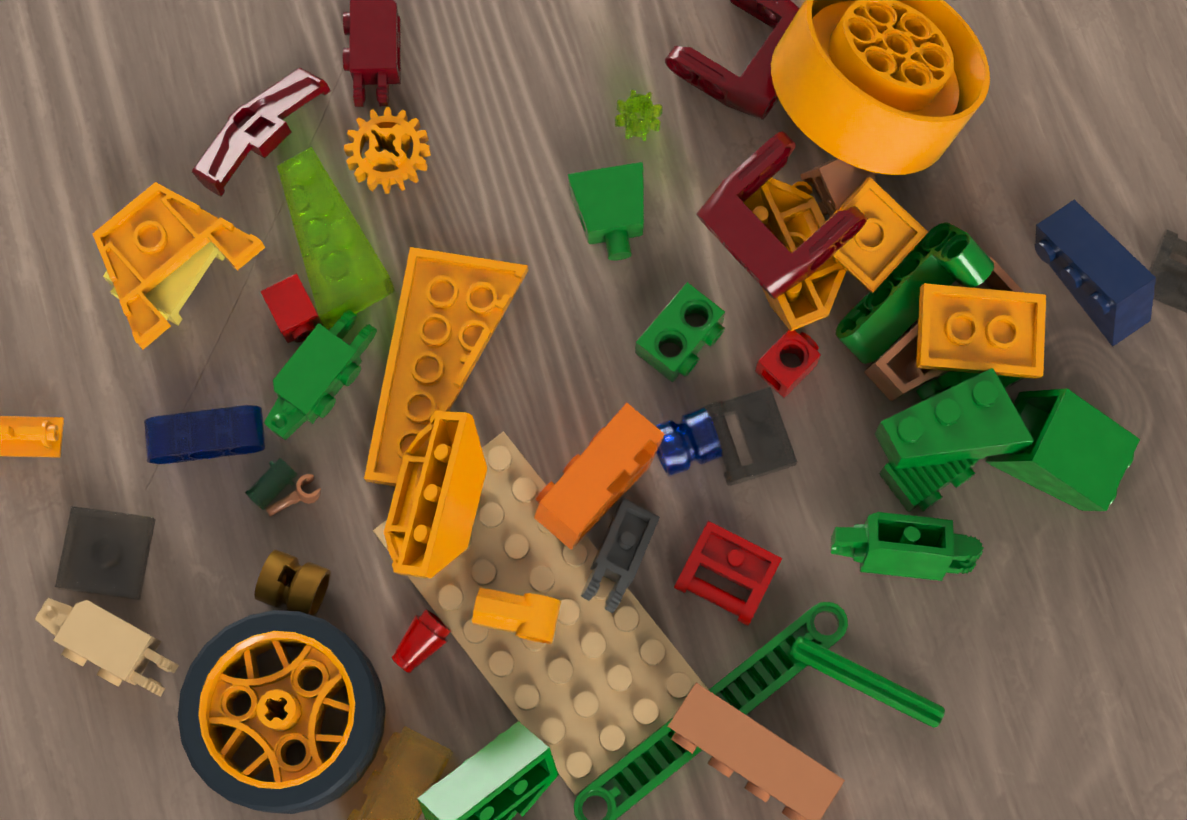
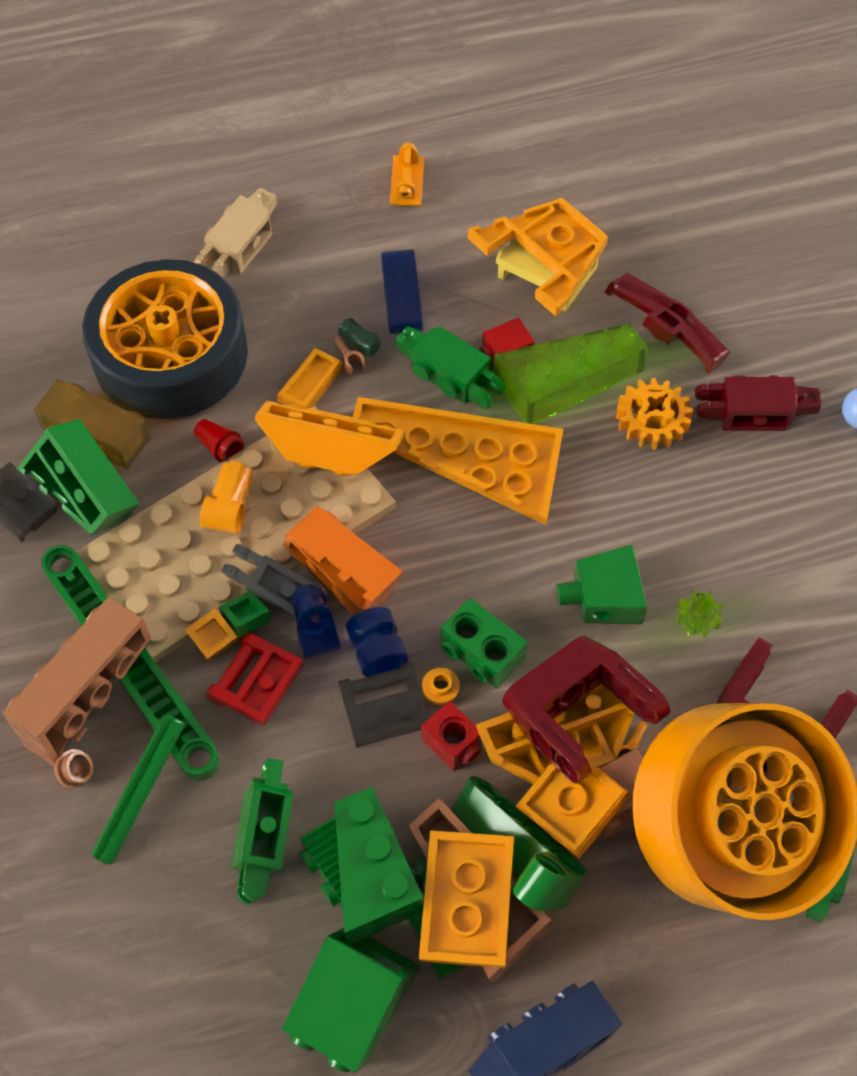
camera: 90 degrees right, 15 degrees down
(105, 553) = (310, 233): clear smoke plate -> none
(307, 585) = (272, 347): pearl gold wheel -> none
(332, 540) = (311, 380): none -> light orange tile
(653, 589) = (245, 613): none -> green plate
(669, 508) = (314, 621): none -> clear blue piece
(679, 623) = (211, 634): none -> light orange plate
(724, 388) = (436, 695): none -> light orange plate
(843, 757) = (82, 765): none -> nougat plate

